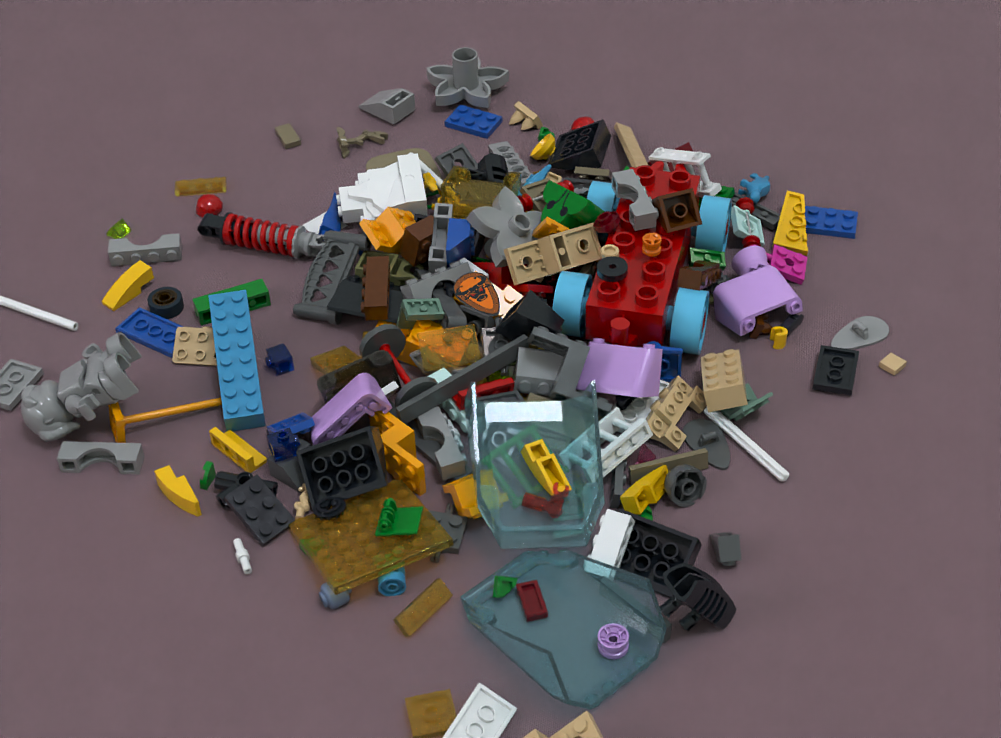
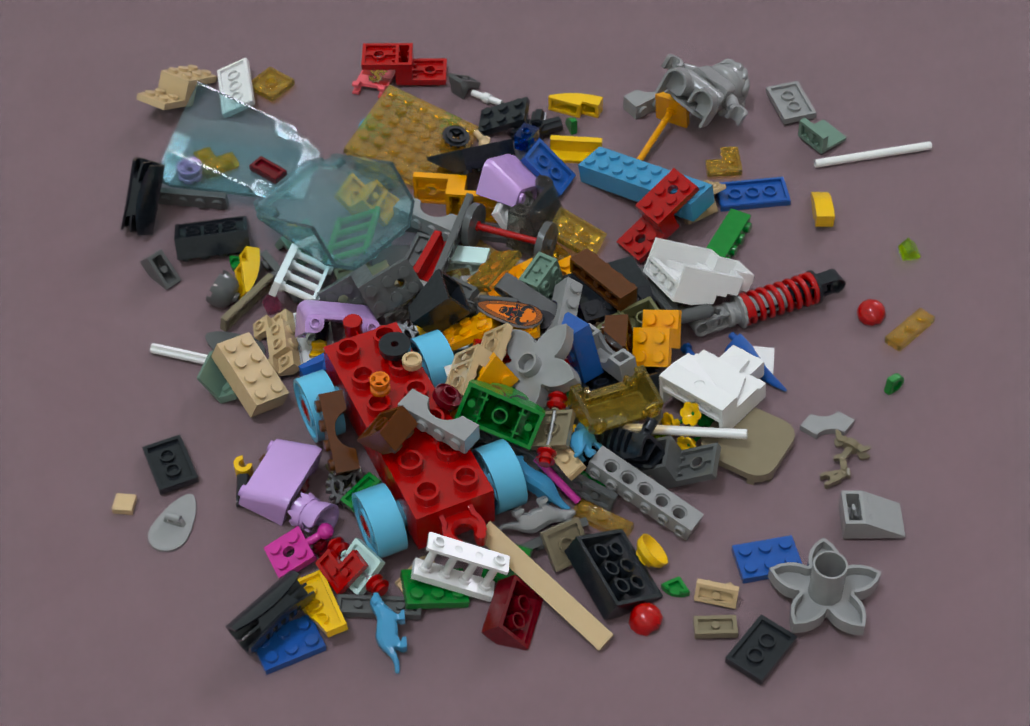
camera: 140 degrees right, 5 degrees up
(37, 342) = (820, 135): none -> sand green bracket
(148, 362) = (726, 166): none -> clear yellow plate
(165, 249) = (869, 230): light grey arch -> none
(166, 302) = (776, 213): black wheel -> none
(246, 576) = (461, 83): none -> dark grey slope
(263, 159) = (893, 383): none -> green tile
(268, 314) = (657, 214): none -> red bracket
(279, 359) = (625, 218): clear blue brick -> none
(281, 630) = (401, 59): none -> red bracket
(287, 136) = (915, 428): dark tan tile -> none
(305, 256) = (694, 273): none -> white panel
(319, 653) = (374, 79): none -> coral flag
(342, 166) = (819, 425): none -> light grey tile
(398, 520) = (392, 139): green hinge -> none
(422, 607) = (335, 128): clear yellow plate -> none
(503, 586) = (293, 163): green tile -> none
(535, 84) = (761, 649): none -> black plate
(544, 466) = (321, 216): yellow slope -> none
(548, 104) = (715, 626): none -> dark tan plate
(553, 506) = (293, 197): clear red bar -> none
(580, 638) = (220, 163): none -> clear yellow plate
(612, 538) = (238, 213): white brick -> none
(765, 227) = (341, 573): none -> red plate
(834, 213) = (270, 612): none -> black piece

